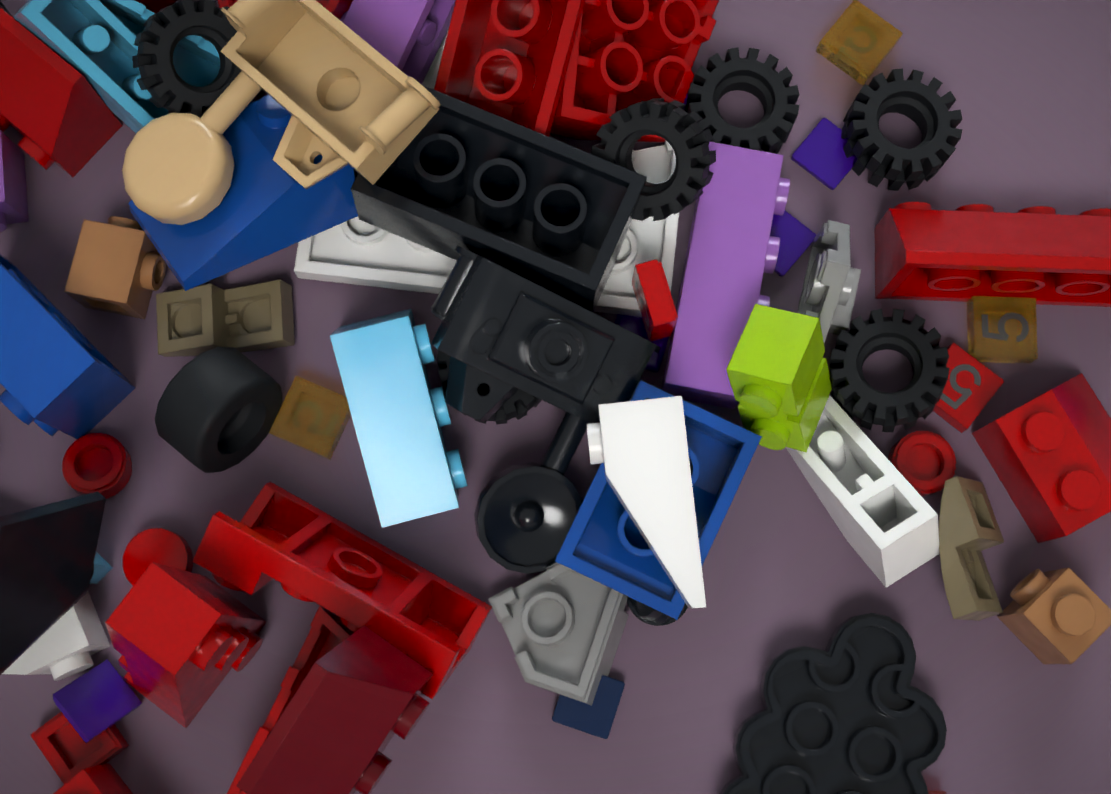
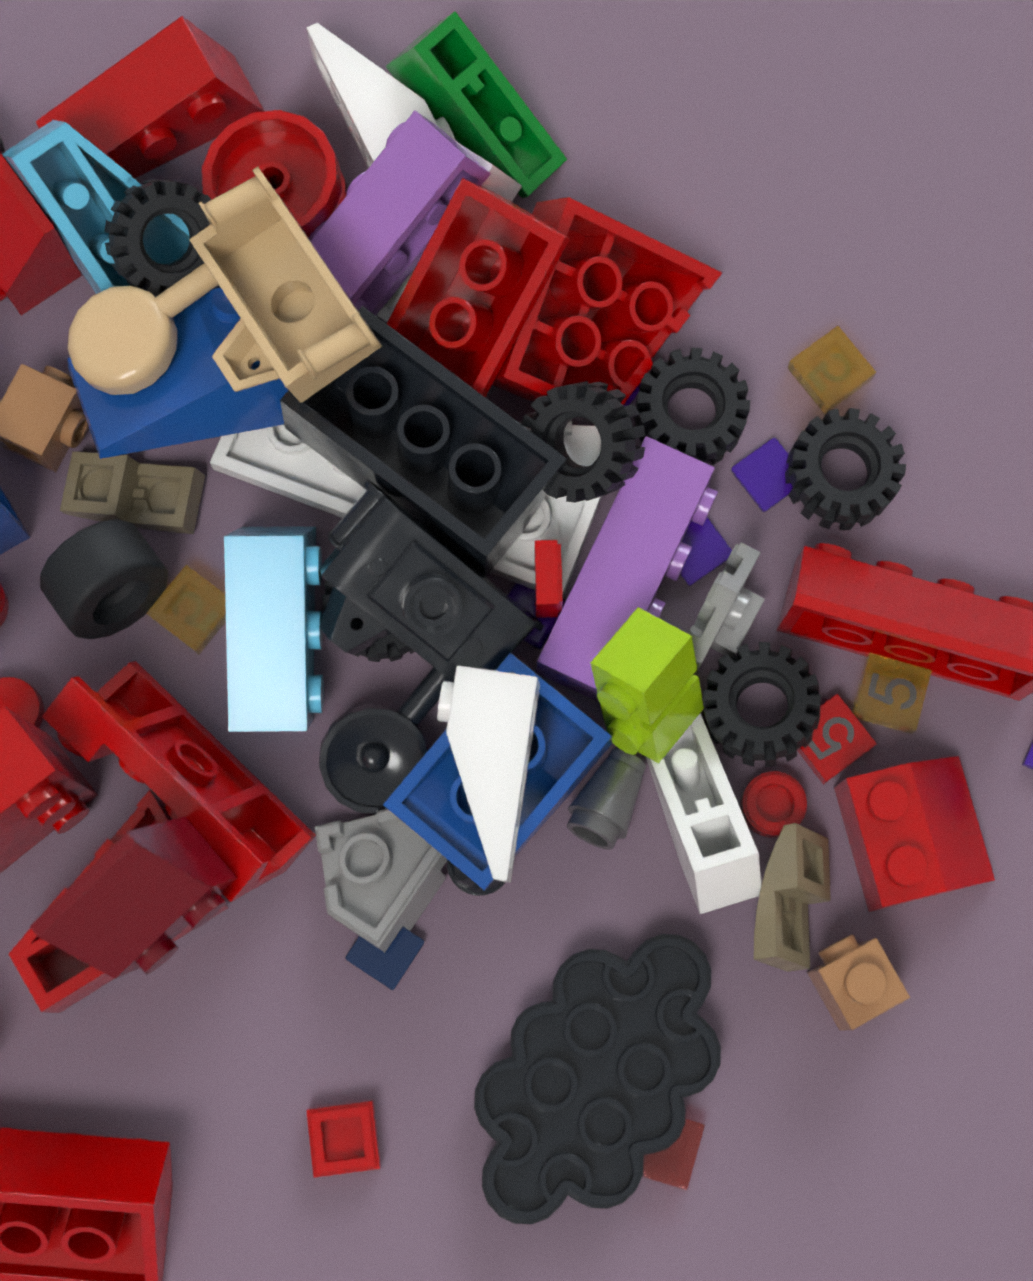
camera: 15 degrees right, 0 degrees up
(765, 501) = (607, 801): none -> flat silver cone

